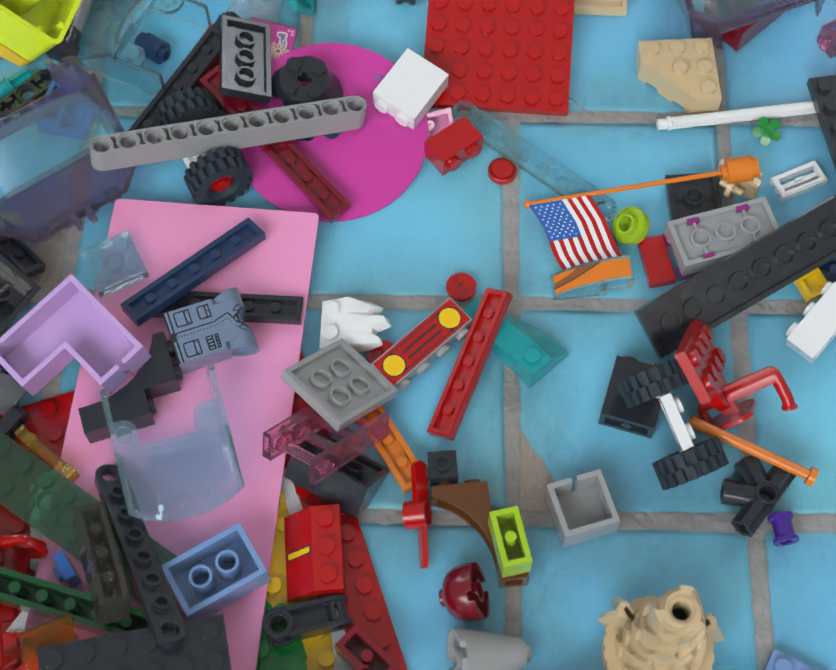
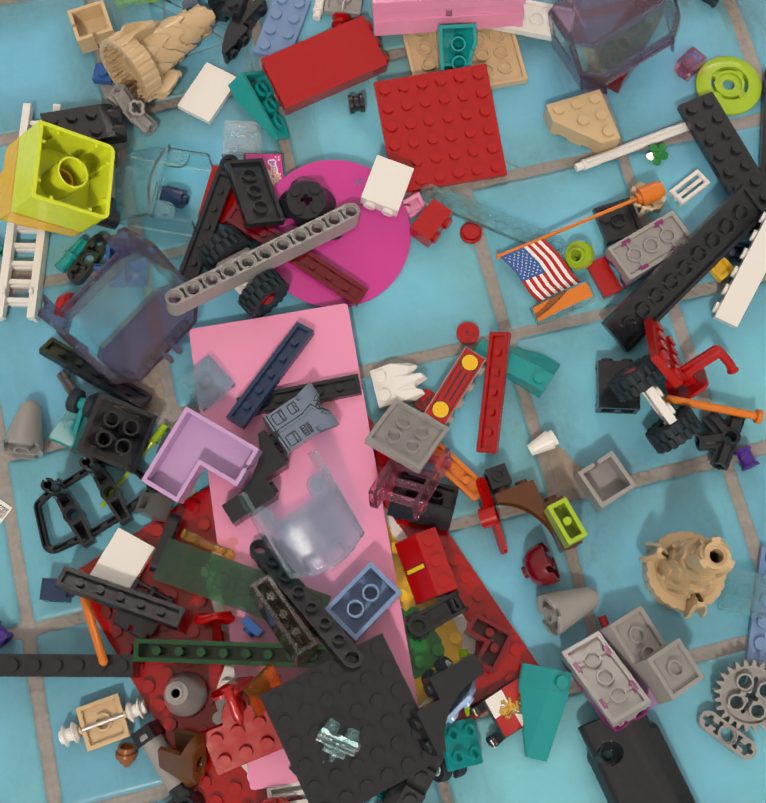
camera: 15 degrees left, 10 degrees up
(516, 442) = (543, 443): none -> white cone

